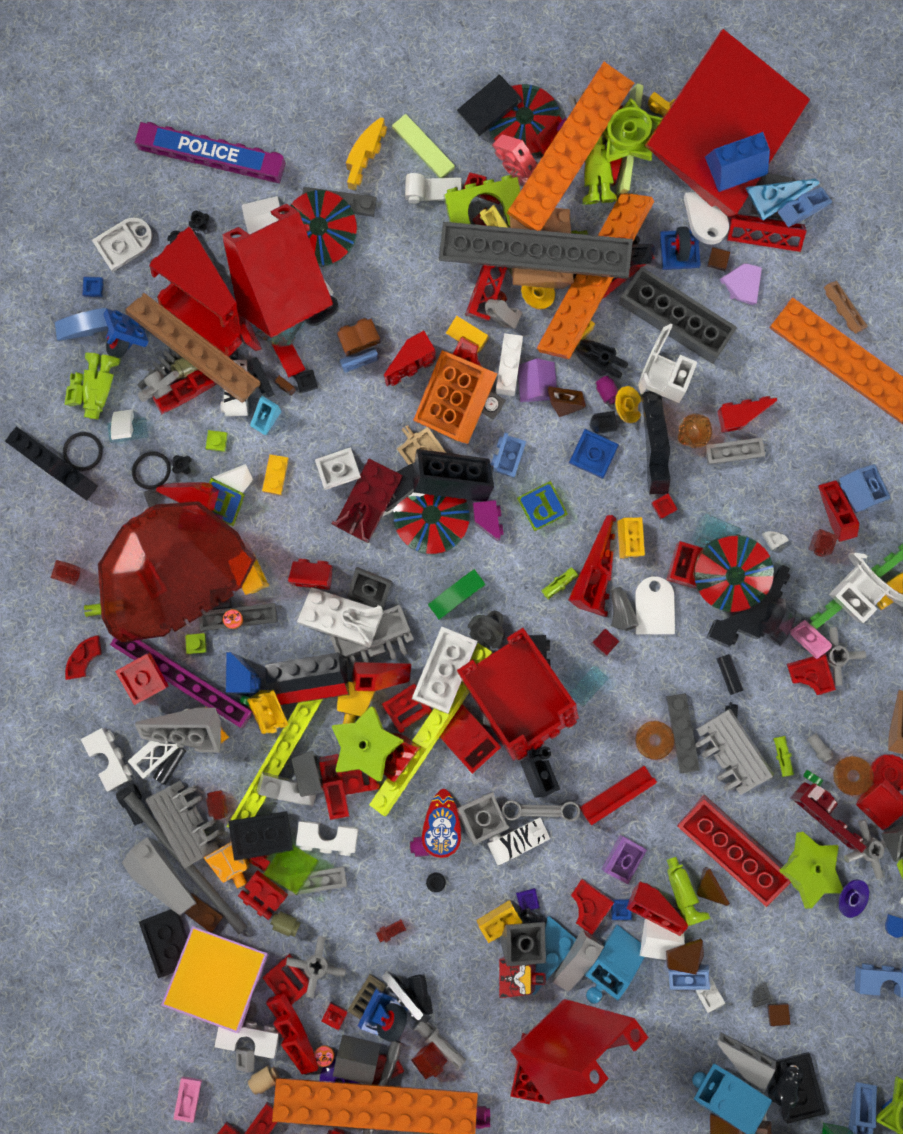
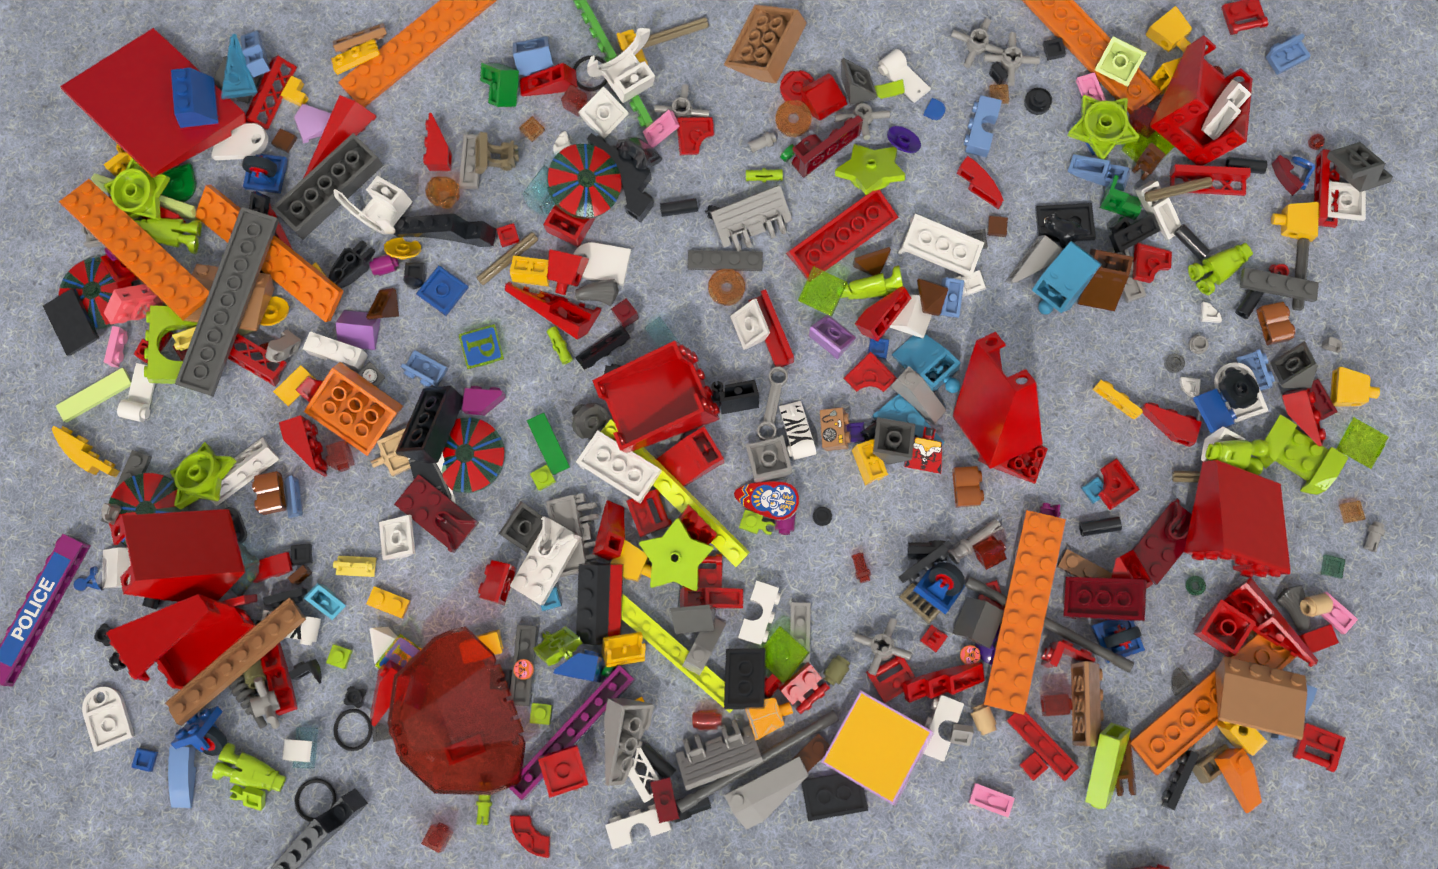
camera: 75 degrees left, 5 degrees down
(132, 780) = (664, 800): none -> dark red plate
(198, 410) = (303, 669): none -> black plate
(241, 184) = (81, 584): none -> blue piece
(258, 647) = (557, 646): none -> lime plate
(304, 435) = (355, 566): none -> light yellow hinge
(304, 632) = (553, 601): none -> dark azure tile
(309, 195) = (110, 512): none -> light grey tile
(361, 268) = (200, 476): none -> lime plate
(372, 303) = (249, 464): none -> white fence
(406, 394) = (339, 456): none -> clear red brick
(416, 813) = (753, 522): none -> lime plate
(423, 595) = (542, 477): none -> lime plate
(477, 153) = (114, 352): none -> bright pink plate
(492, 1026) = (966, 486): none -> dark orange brick
(526, 879) = (834, 429): none -> medium nougat brick
(565, 627) = (603, 347): none -> black plate
(618, 773) = (750, 324): none -> white slope
(638, 572) = (565, 269): none -> red torso
(640, 511) = (507, 258): none -> dark tan axle
(651, 171) = (181, 183): none -> green tile
(668, 841) = (822, 291): none -> clear neon green tile
(742, 959) = (942, 245): none -> white plate
(746, 314) = (344, 120): none -> red wedge
(750, 487) = (483, 151): none -> dark tan tile
(772, 254) = (293, 93): none -> yellow piece
(783, 505) = (532, 129): none -> clear orange tile
(816, 575) = (603, 113): none -> white slope
(823, 307) = (355, 56): none -> yellow hinge
(823, 989) = (980, 182): none -> red slope
(827, 464) = (501, 82): none -> green panel
(875, 547) = (589, 88): none -> black tyre

